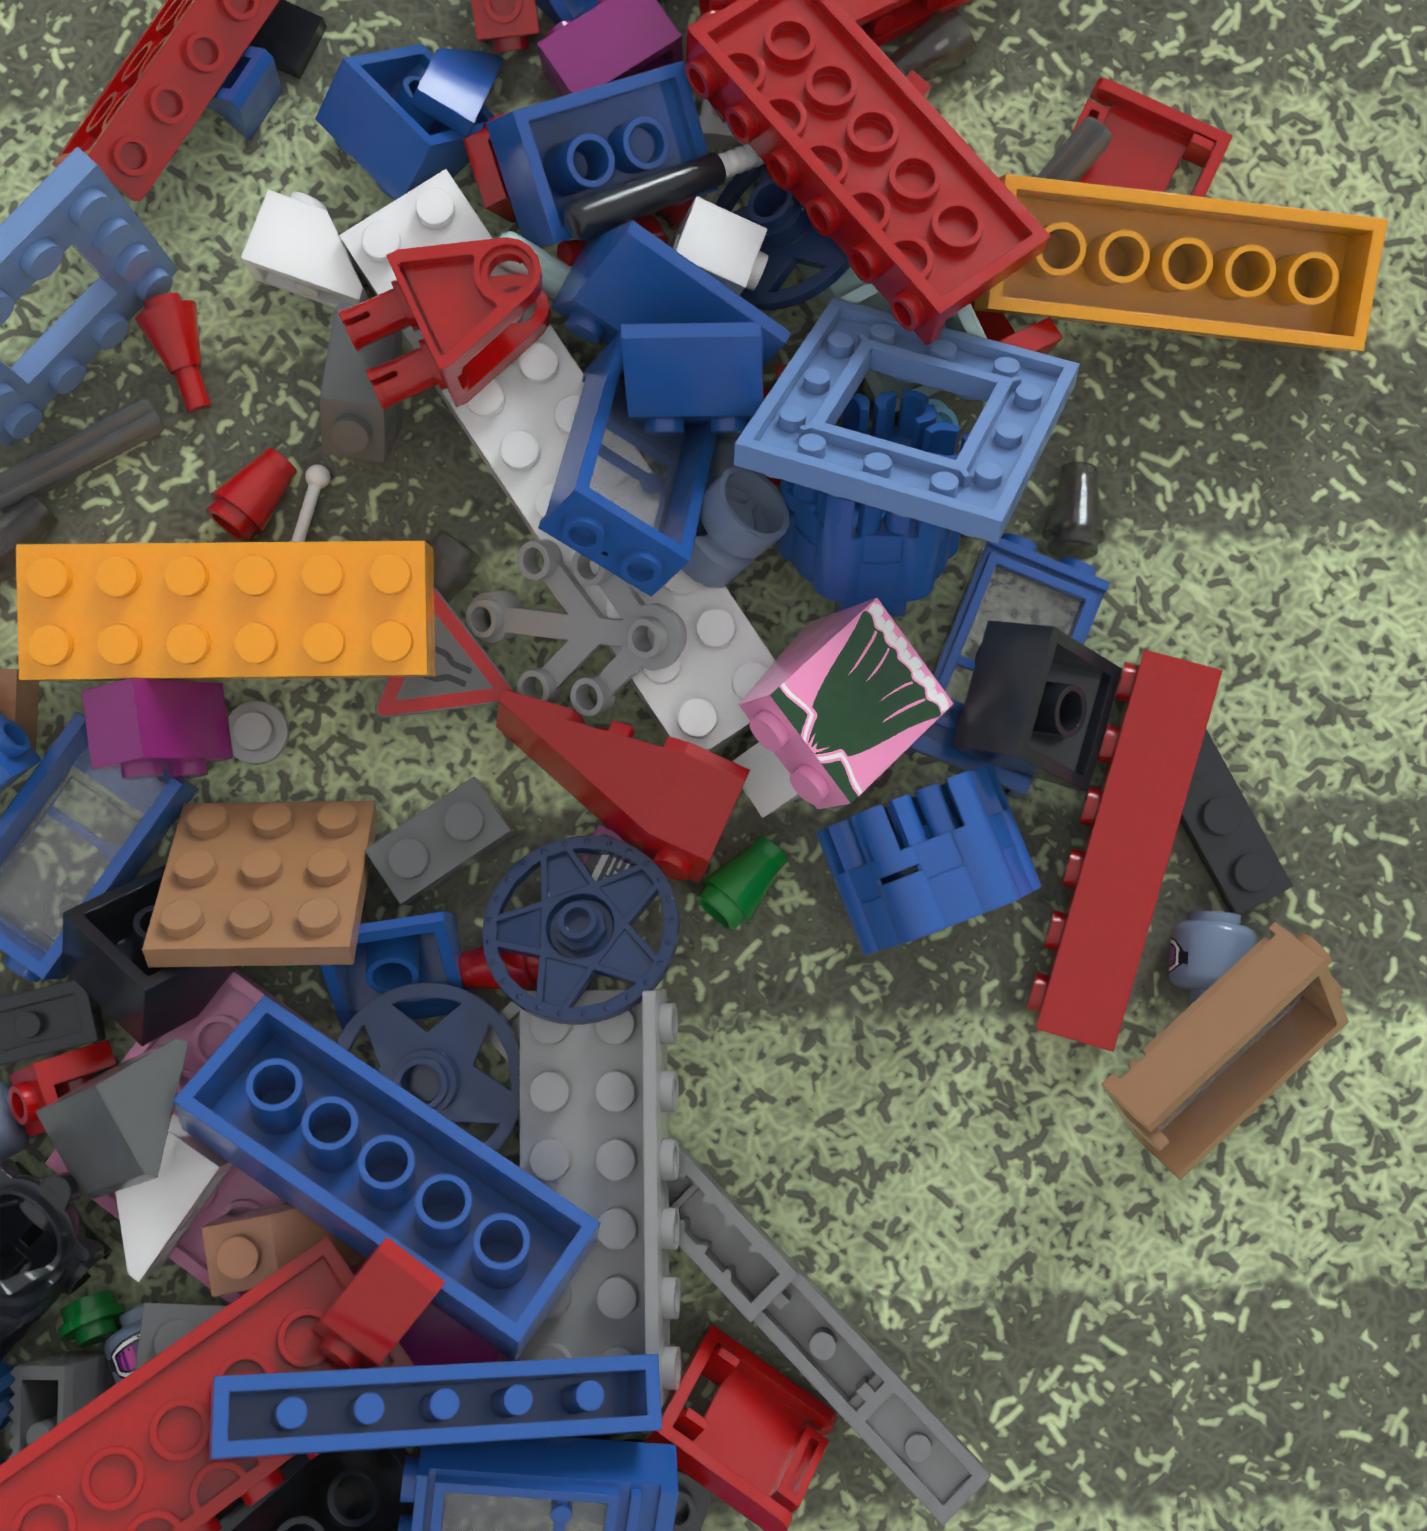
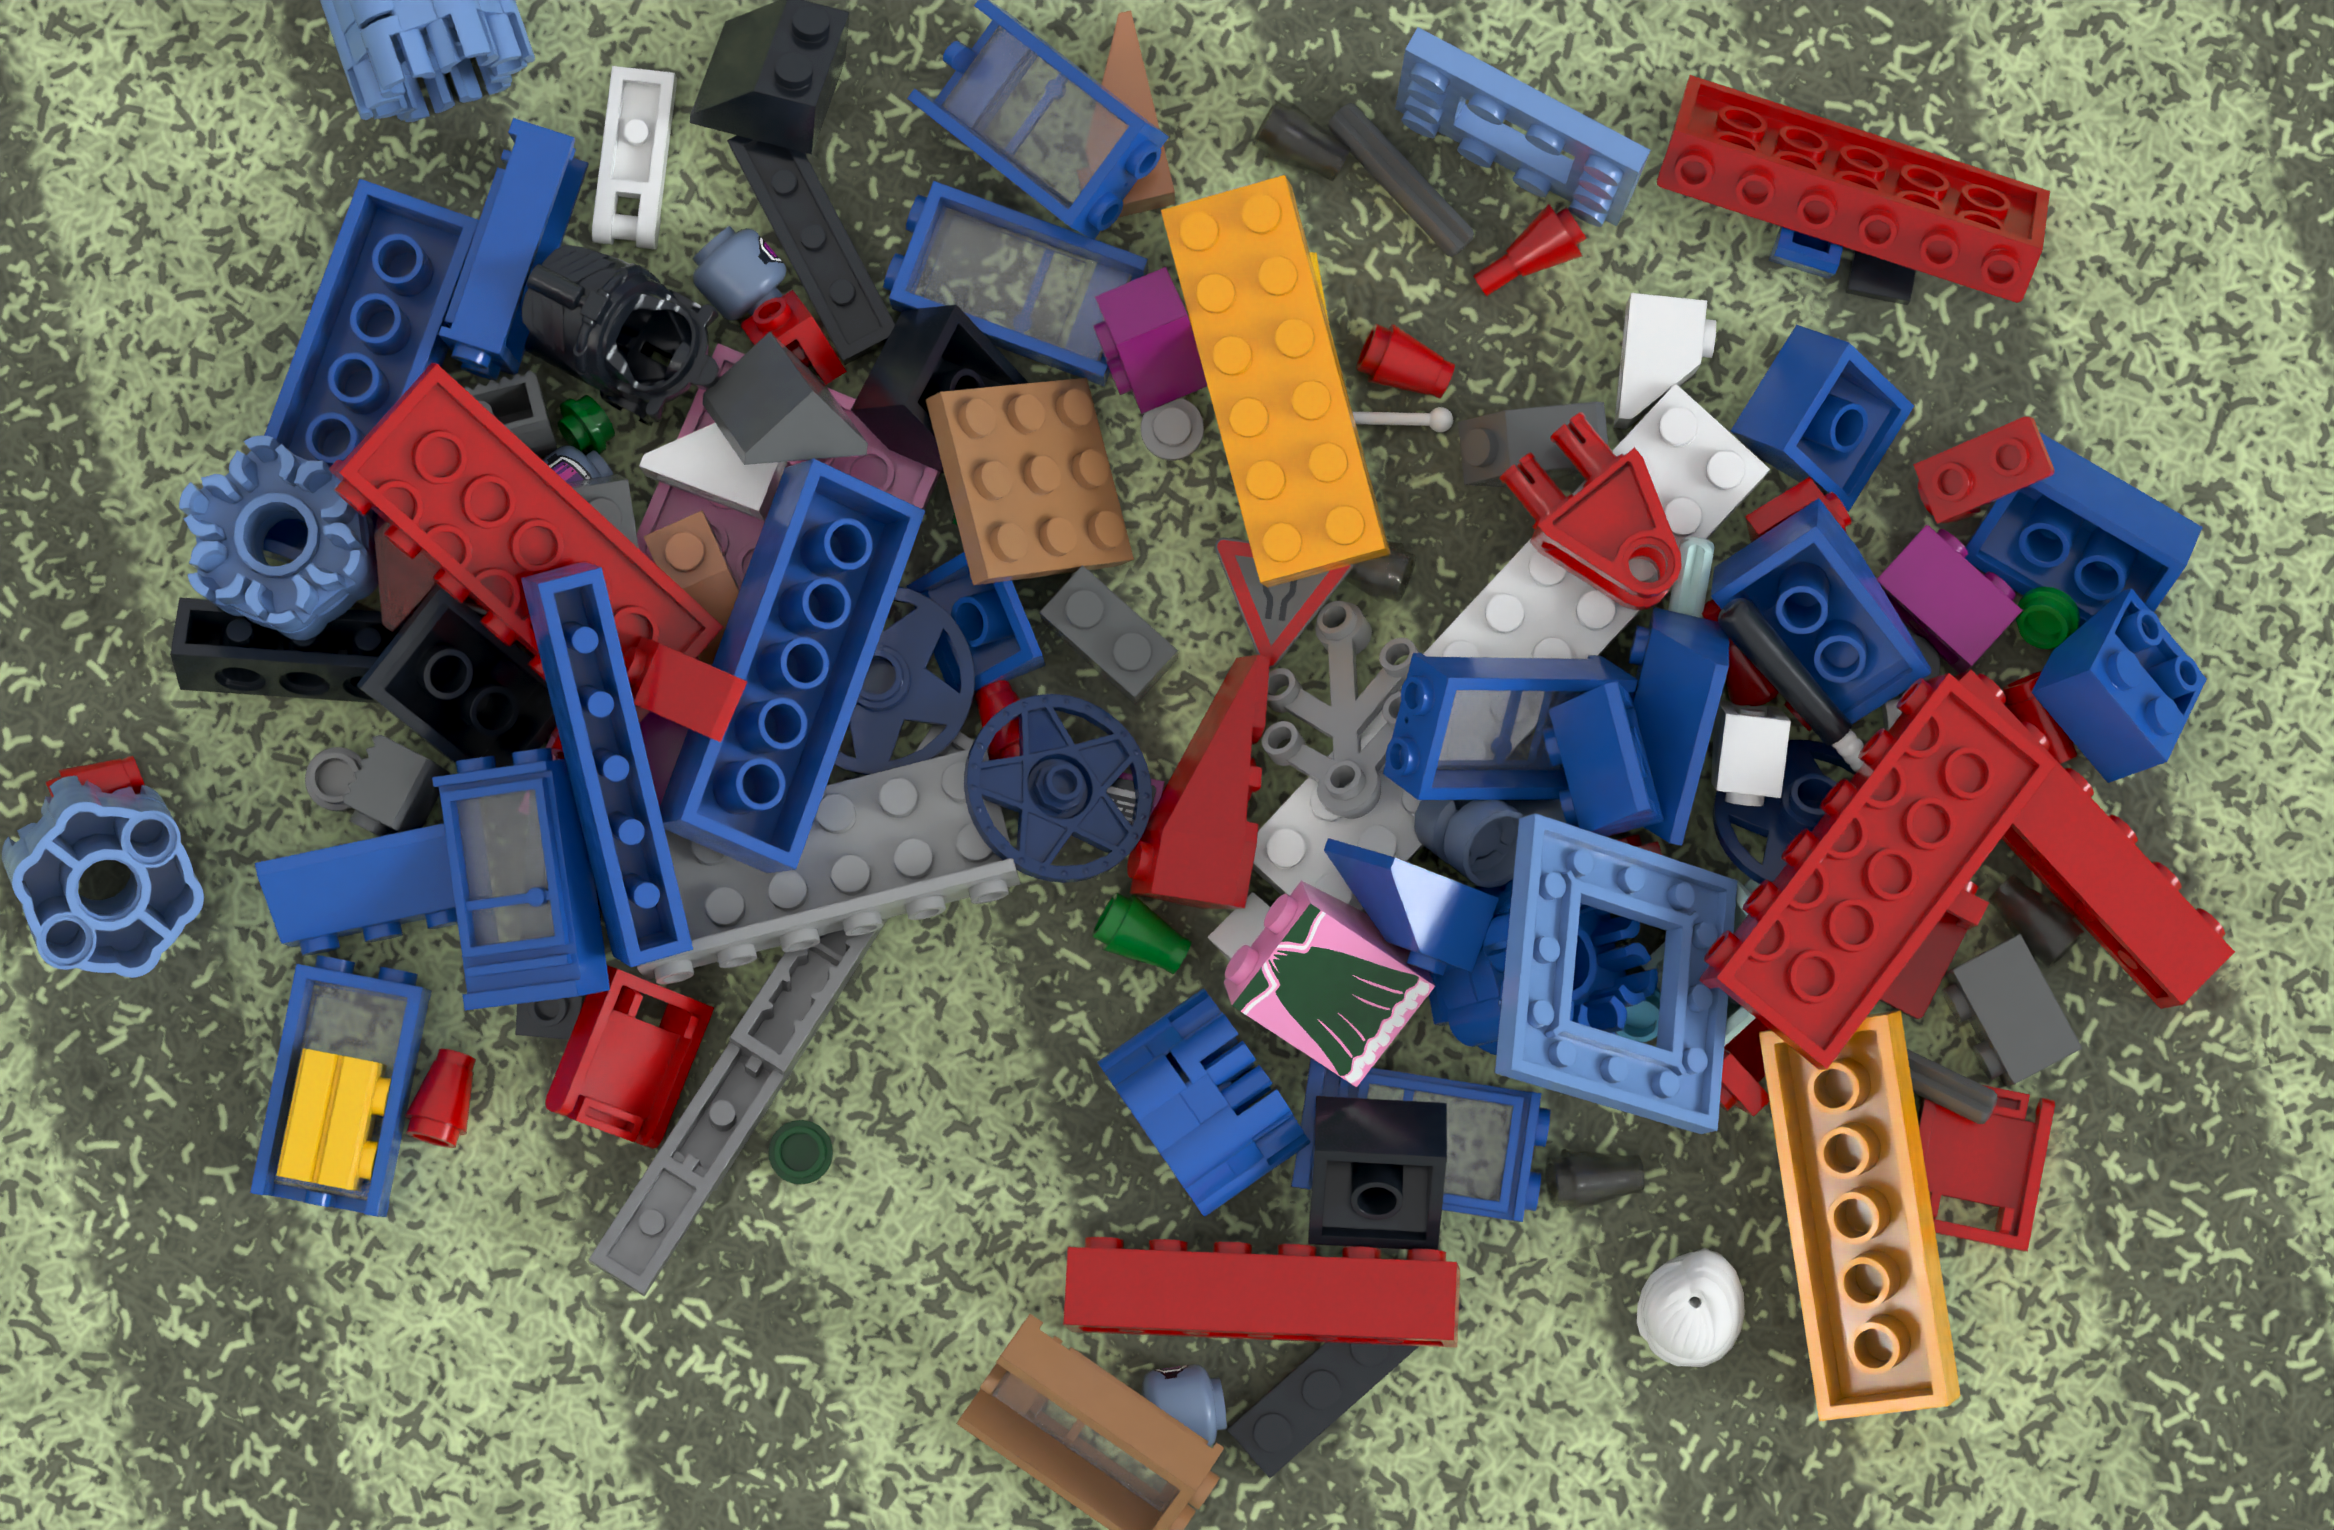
camera: 85 degrees right, 0 degrees up
(456, 86) = (1863, 458): blue slope -> none
(794, 595) = (1417, 908): none -> blue slope
(875, 1270) = (800, 1152): none -> dark green plate
(1011, 91) = (2010, 1012): none -> dark grey brick
(1217, 451) = (1692, 1309): none -> white hair

